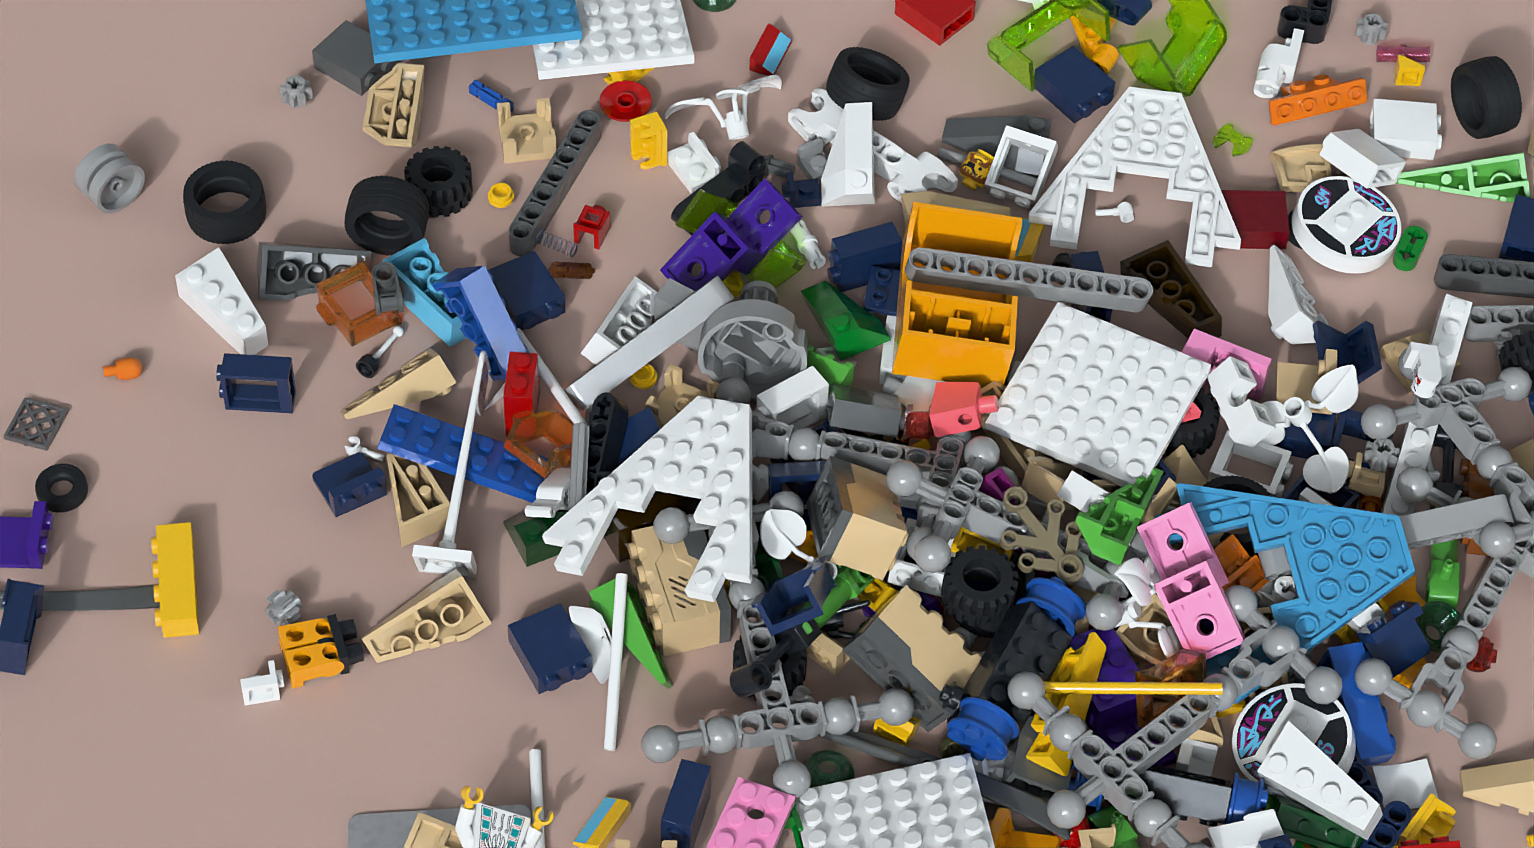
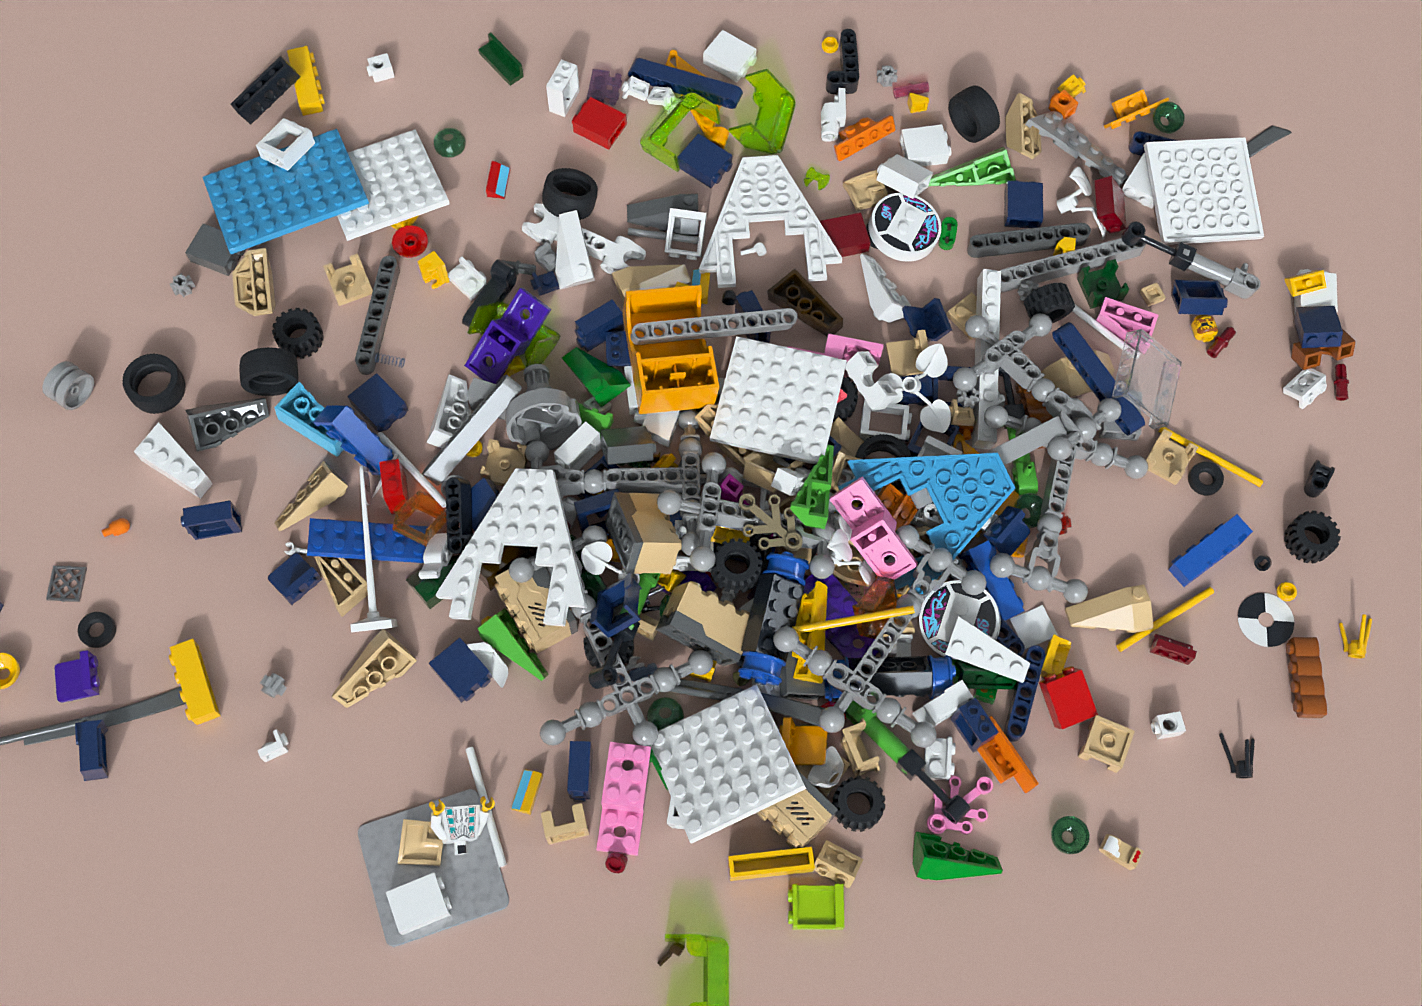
camera: 15 degrees left, 15 degrees up
(318, 648) = (304, 710): light orange hips -> none
(363, 326) = (277, 454): clear orange piece -> none
(369, 363) = (285, 483): black hinge -> none
(386, 292) = (284, 432): dark grey piece -> none
(488, 95) = (316, 257): blue axle -> none
(500, 195) = (343, 332): yellow plate -> none
(571, 270) = (405, 380): reddish brown axle -> none
(579, 463) = (447, 535): light grey axle -> none
(593, 221) = (410, 340): red window -> none
(615, 662) = (507, 673): white piece -> none
(736, 121) = (488, 240): white plant -> none
(808, 245) = (558, 323): white pin -> none
(918, 423) = (666, 447): clear red window -> none
(951, 695) = (736, 650): black plate -> none
(959, 407) = (690, 431): coral torso -> none
(976, 169) = (656, 240): head -> none
(1425, 368) = (986, 334): white leg -> none

